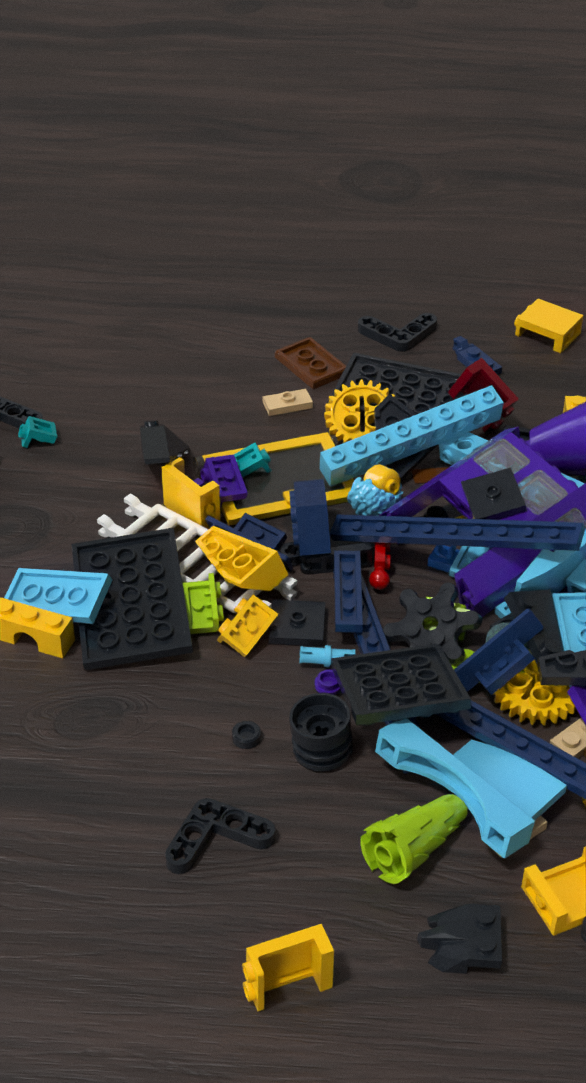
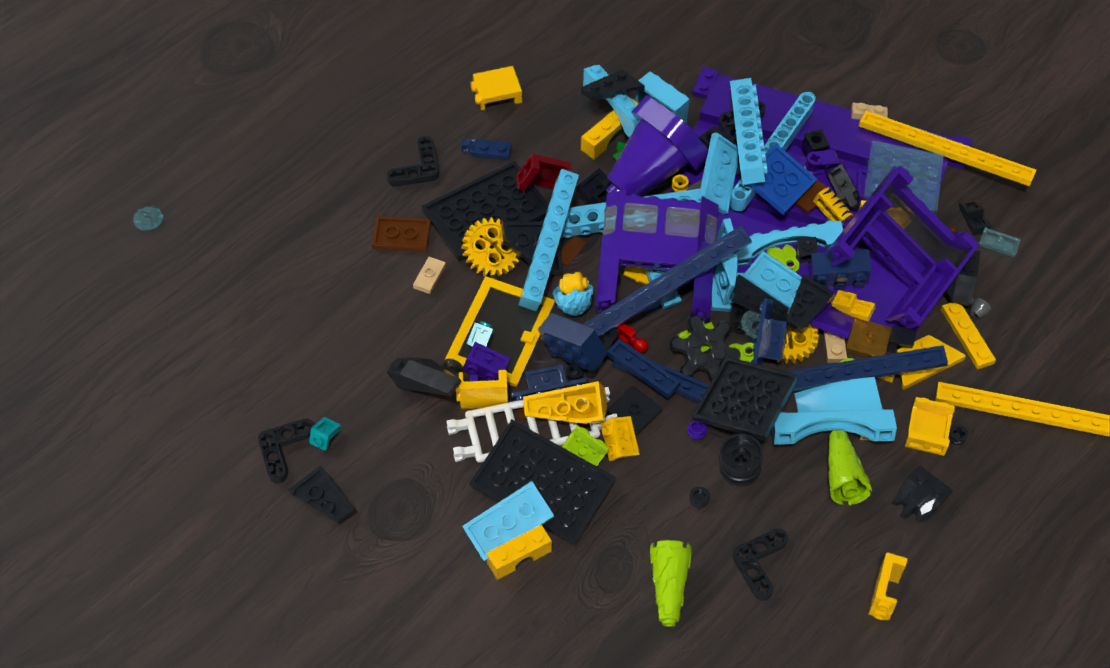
camera: 50 degrees left, 15 degrees up
(109, 759) = (670, 573): none -> lime cone
(149, 228) = (147, 224): none -> clear light blue gear
(322, 655) = (676, 415): medium azure pin -> none
(493, 495) = (663, 244): black plate -> none

